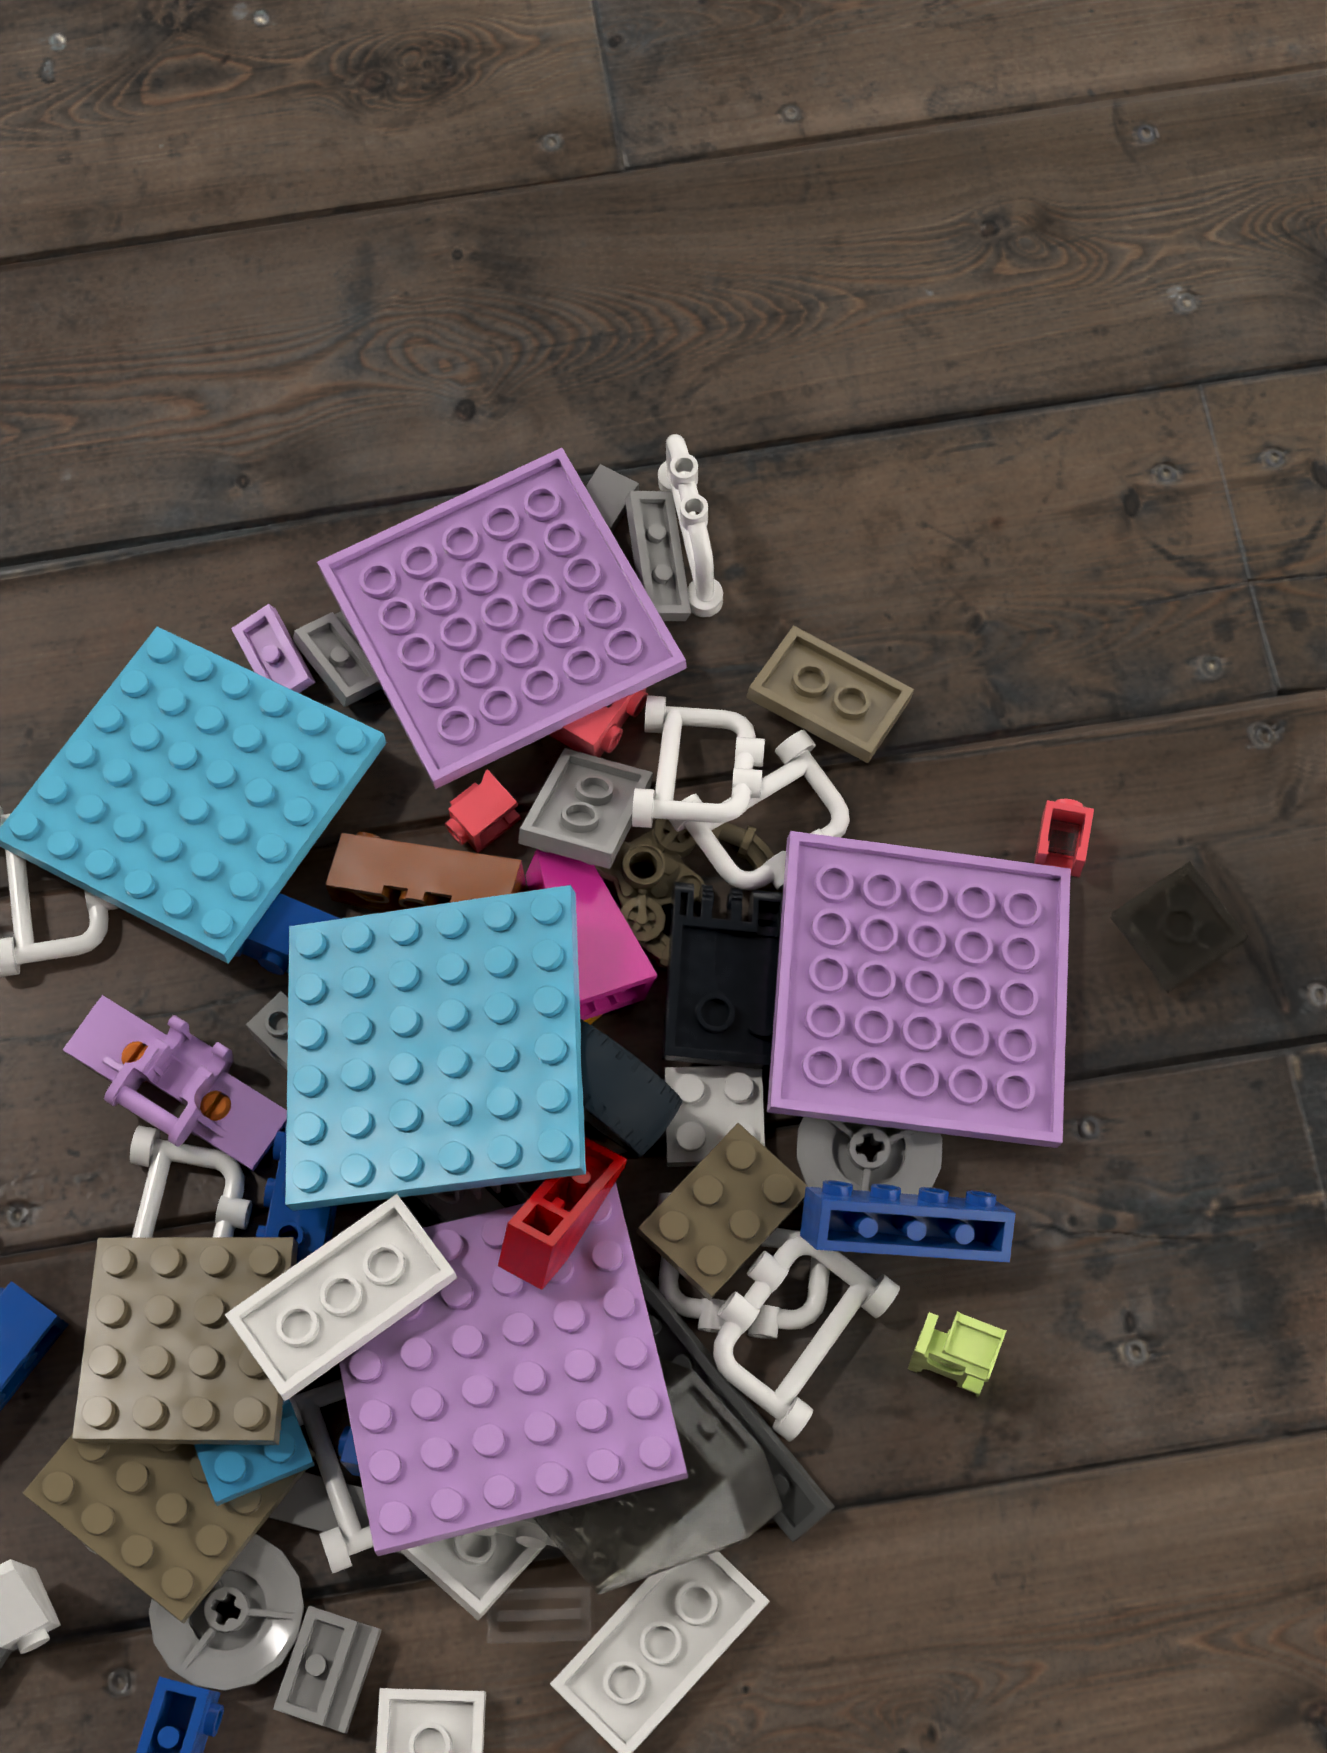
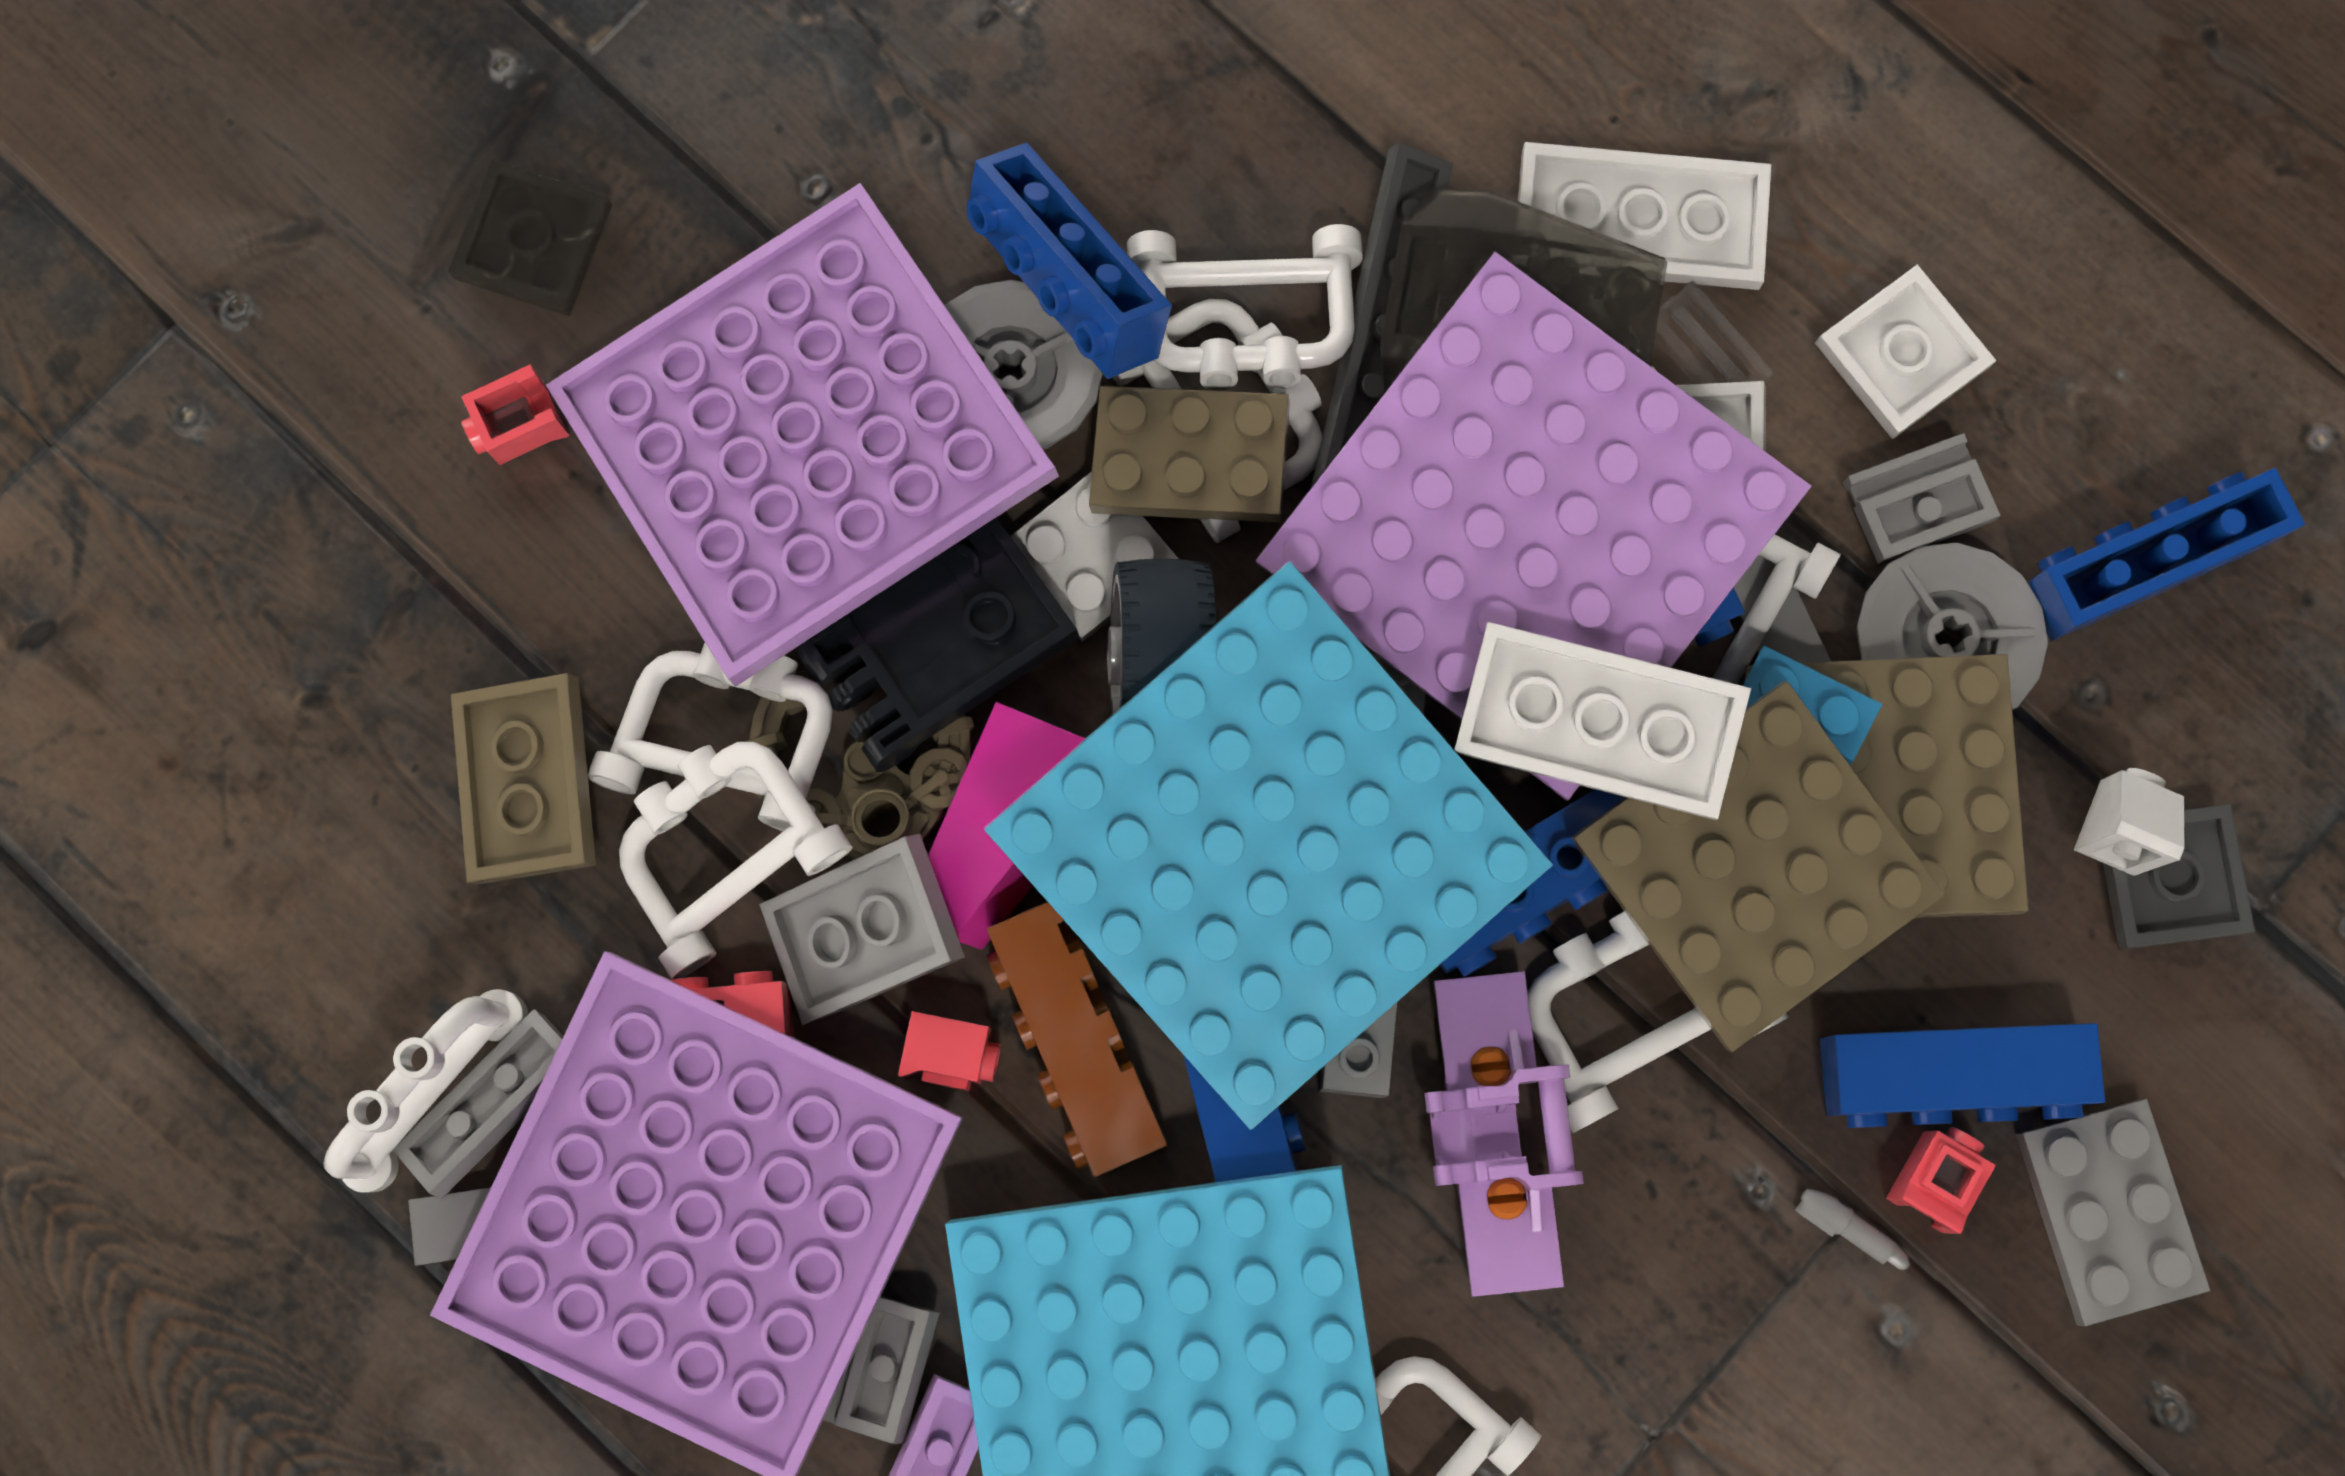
camera: 130 degrees left, 10 degrees up
(557, 1216) = (1352, 563): red slope -> none
(961, 1354) = (1155, 124): yellowish green piece -> none

